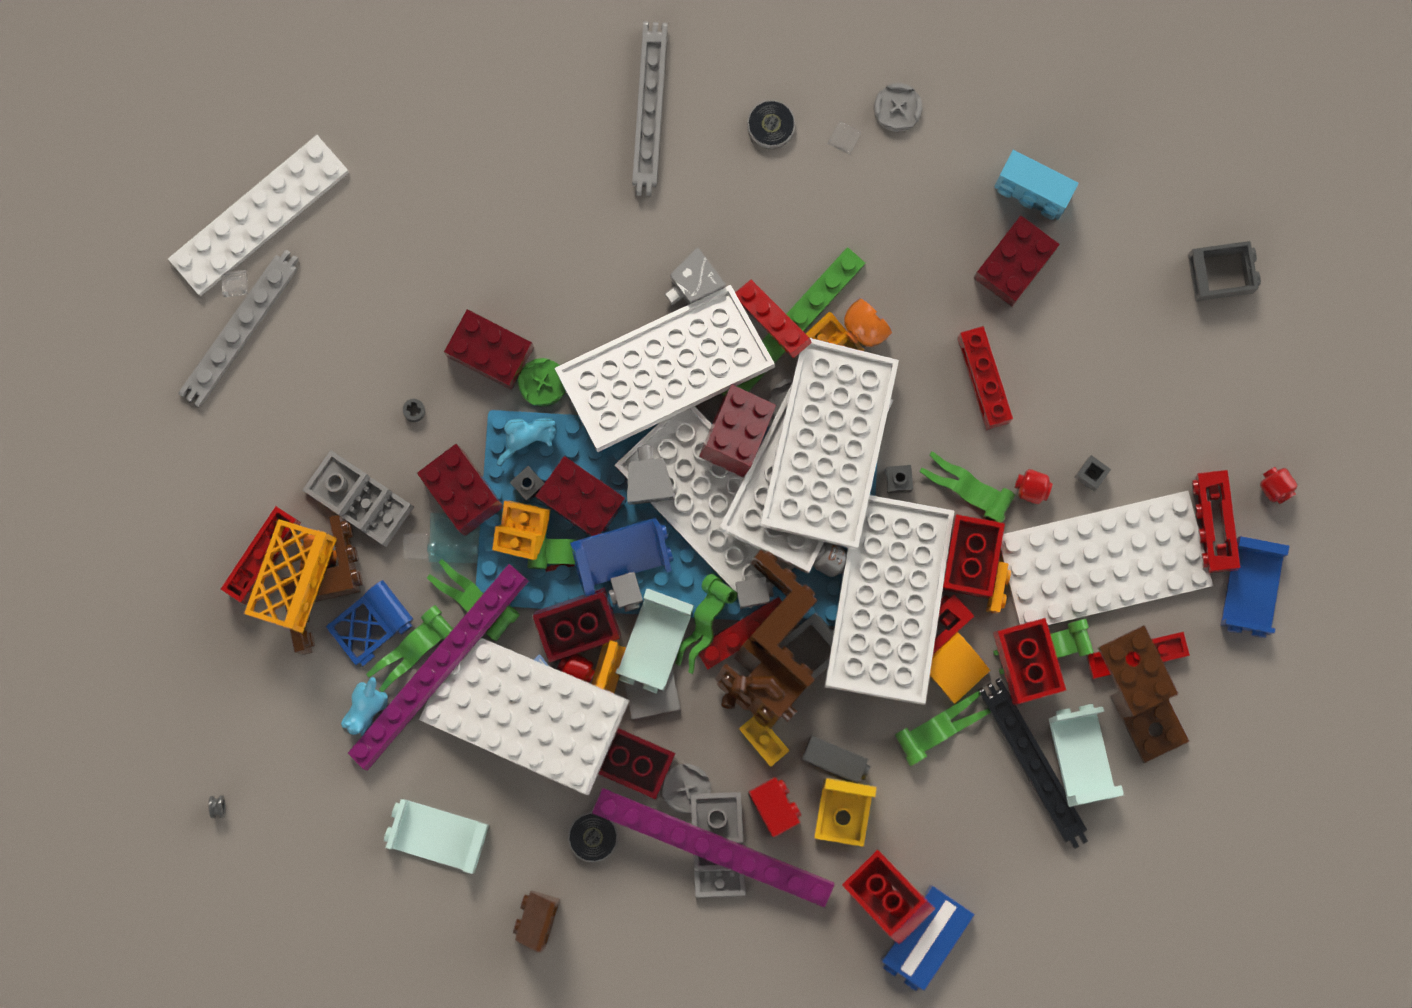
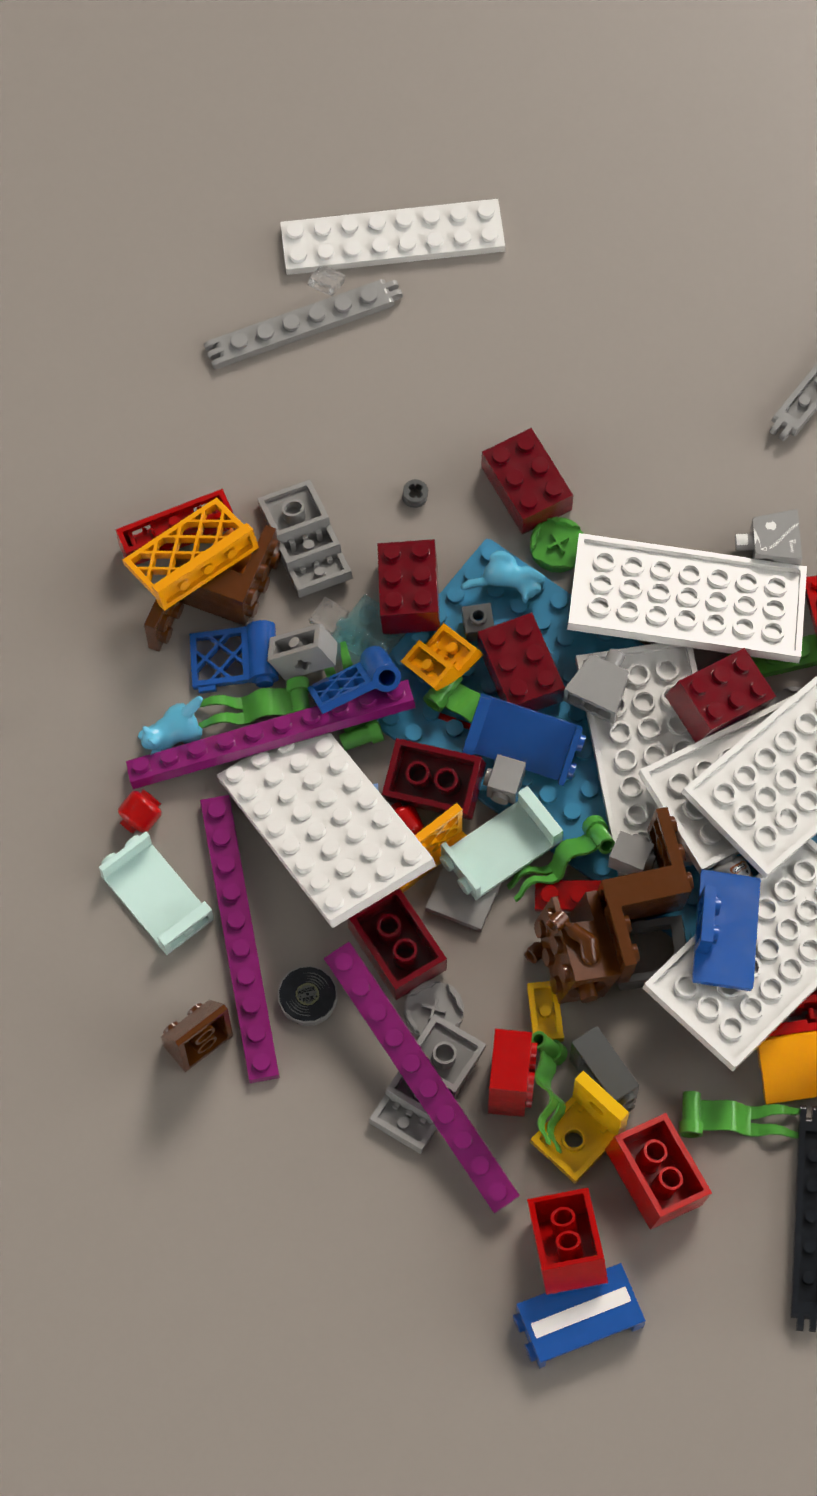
camera: 35 degrees right, 15 degrees down
(384, 785) = (139, 811): none -> red head
(419, 591) = (302, 651): none -> light grey brick
(482, 575) = (372, 672): none -> blue piece
(516, 827) = (239, 939): none -> magenta plate
(787, 767) = (551, 1055): none -> bright green flag
(855, 607) = (726, 930): none -> blue bracket
(916, 804) = (658, 1171): none -> red brick

